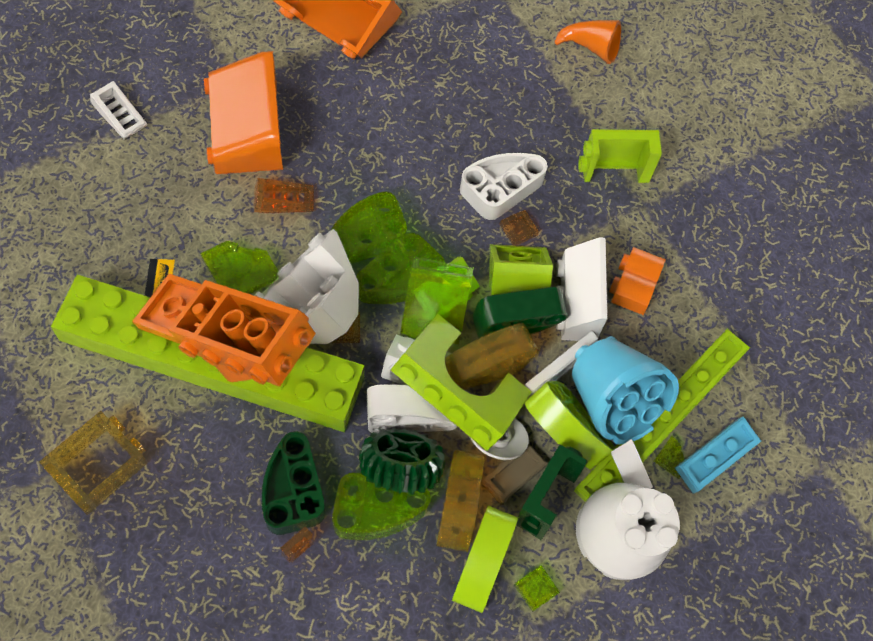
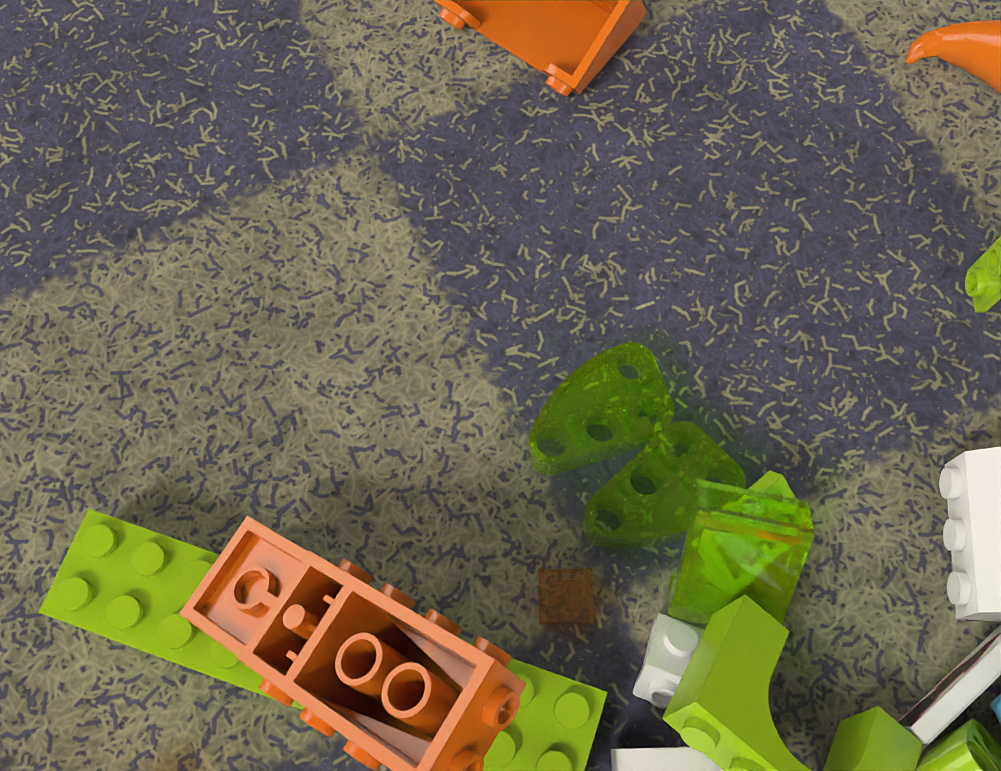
camera: 10 degrees right, 5 degrees up
(106, 93) = (153, 165): white slope -> none
(157, 273) = (237, 498): sticker -> none
(240, 267) = (377, 486): clear neon green plate -> none
(244, 116) = (383, 203): orange windscreen -> none
(273, 205) = (451, 364): clear orange slope -> none
(320, 287) = (505, 545): white brick -> none
(492, 357) = (848, 676): clear yellow beam -> none
(493, 176) = (820, 313): white beam -> none
(519, 228) = (867, 401): clear orange tile -> none
(519, 268) = (880, 490): lime slope -> none
(534, 308) = (890, 583): dark green beam -> none

